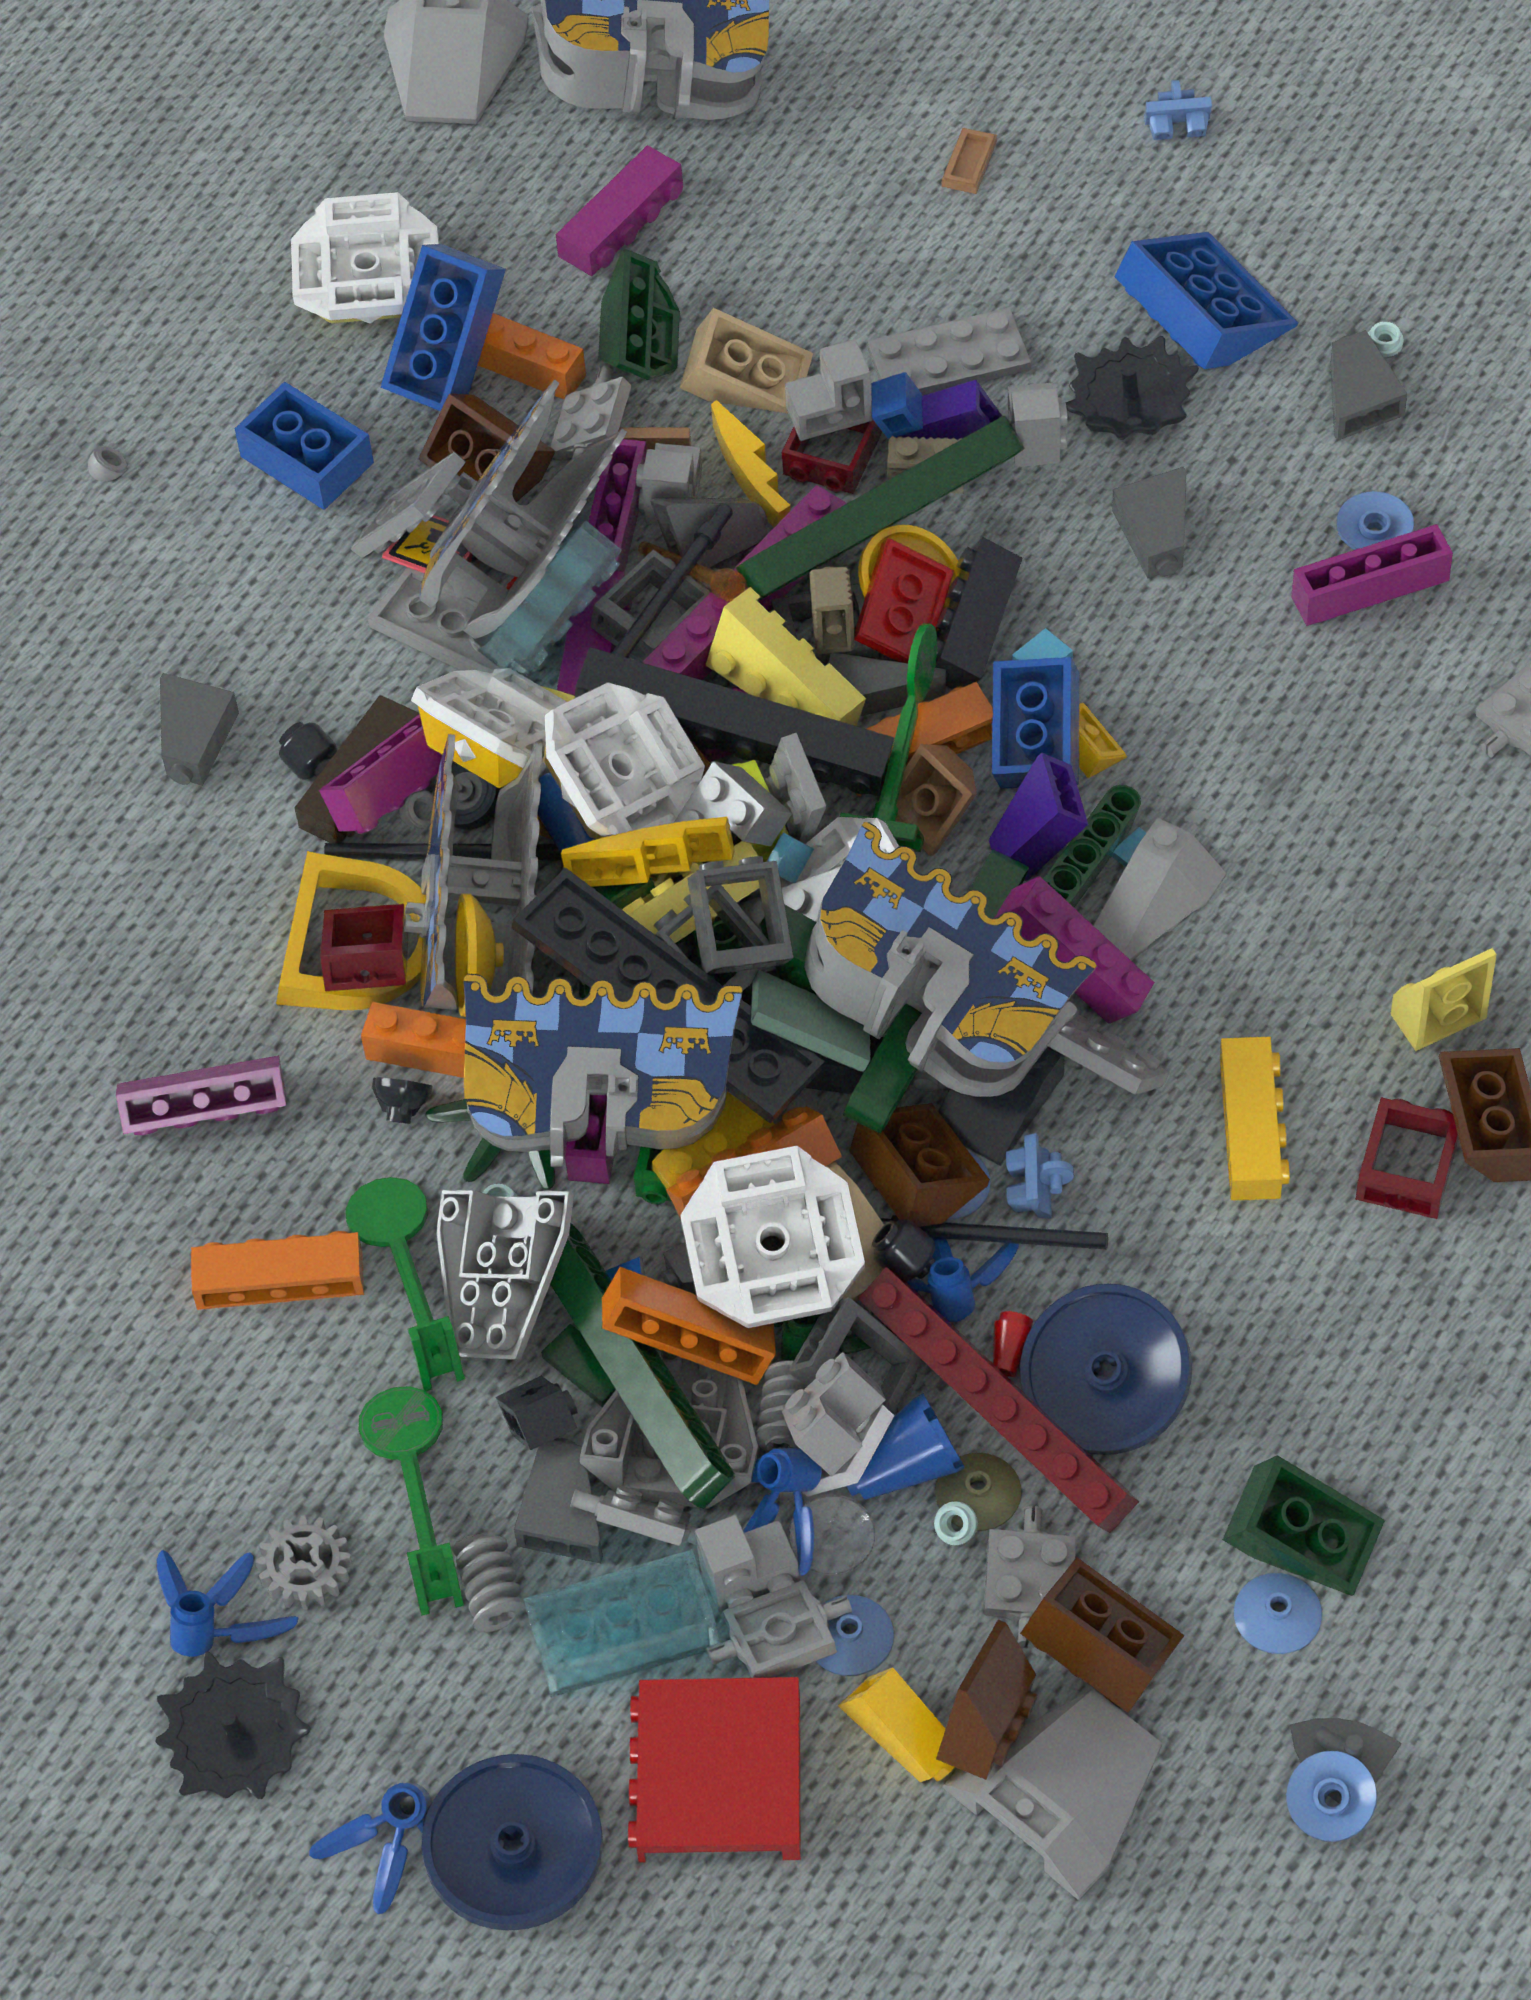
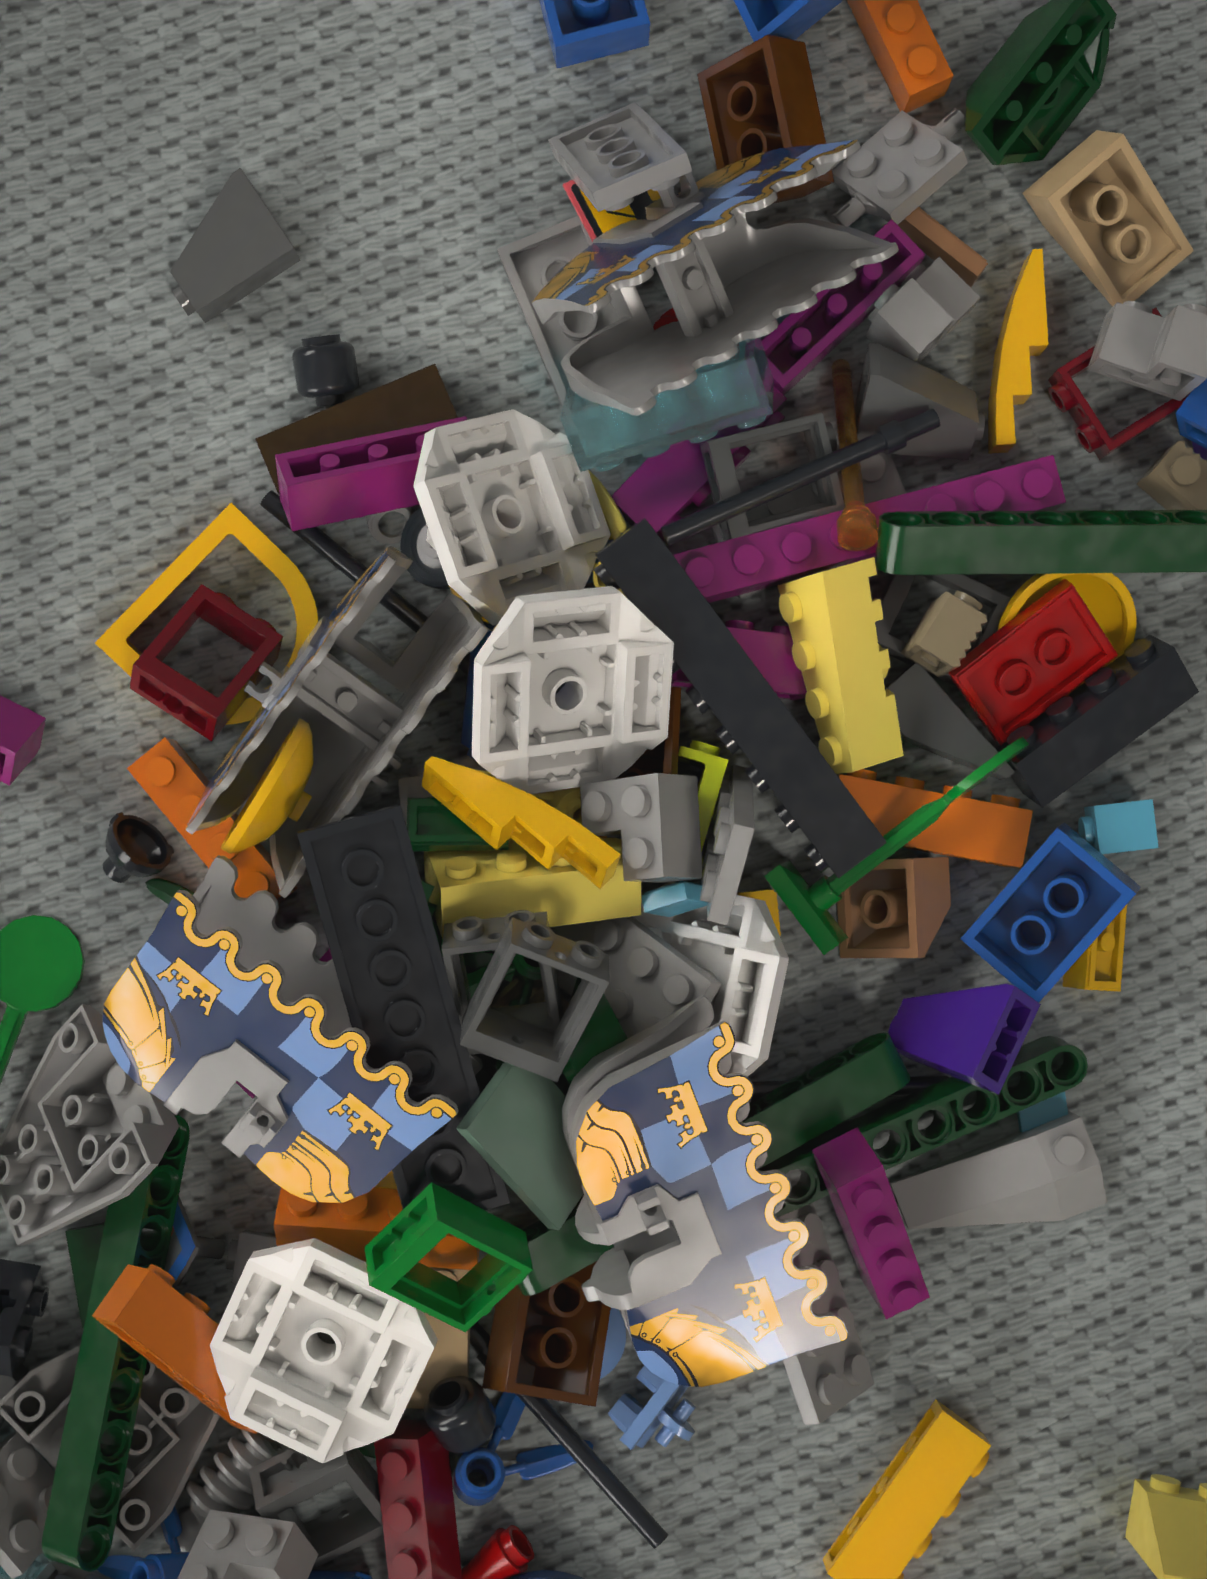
camera: 35 degrees right, 30 degrees up
(774, 1097) = (418, 1228): none -> green window

